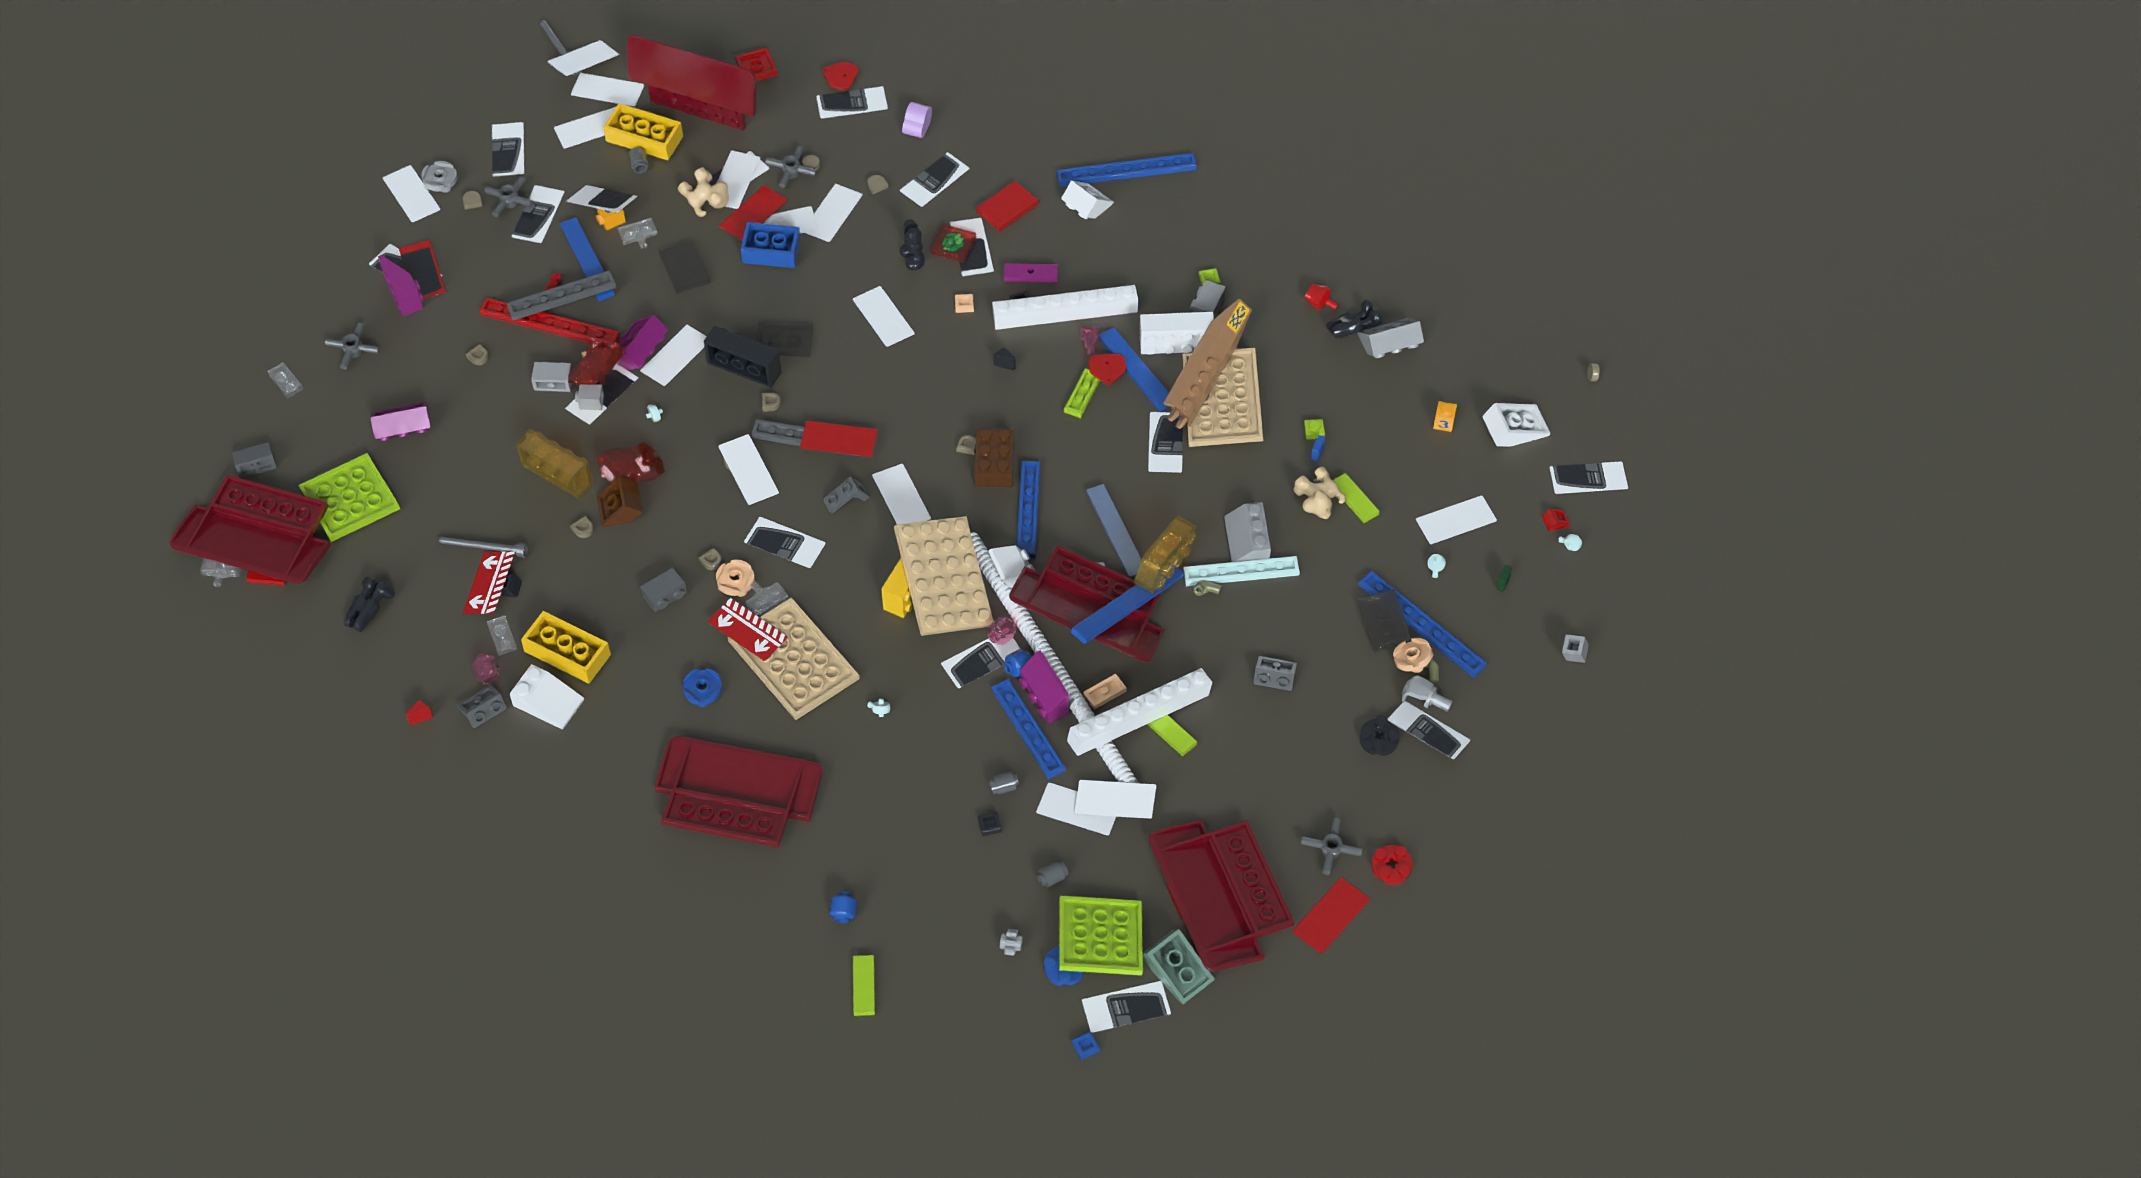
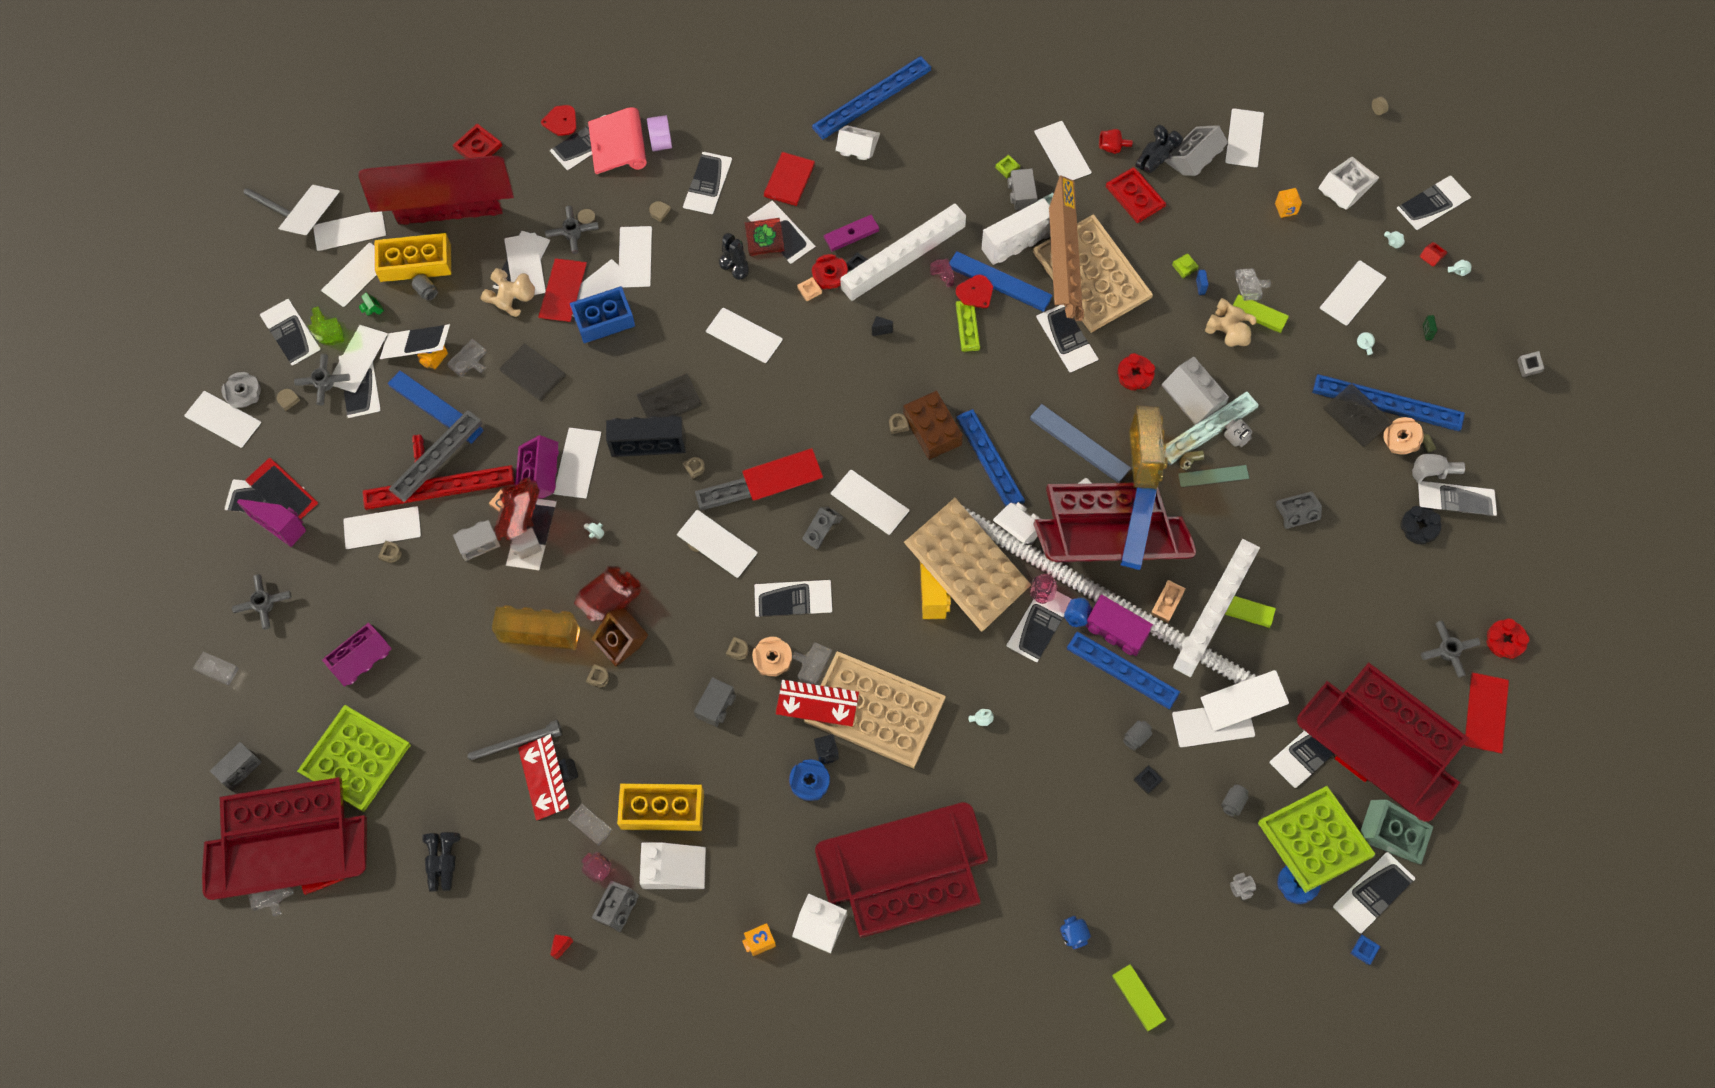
camera: 25 degrees left, 10 degrees up
(483, 332) = (381, 526): none -> white sticker
(536, 159) = (325, 331): none -> clear neon green brick
(551, 193) = (359, 357): none -> white sticker
(579, 786) = (758, 940): none -> light orange brick
(585, 155) = (370, 305): none -> green tile
(637, 797) = (819, 923): none -> white slope
(731, 668) = (826, 749): none -> black brick
(878, 111) = (617, 140): none -> coral door
(989, 287) = (820, 275): none -> red plate
(1135, 872) = (1300, 759): none -> sticker
(1205, 505) = (1139, 363): none -> red plate
(1219, 612) = (1213, 476): none -> sand green sticker
(1262, 585) = (1238, 433): none -> light grey head
(1269, 287) = (1062, 151): none -> white sticker
(1310, 351) = (1135, 195): none -> red tile
(1362, 469) = (1250, 285): none -> clear plate
(1447, 347) = (1244, 137): none -> white sticker
(1526, 491) = (1395, 239): none -> light aqua piece

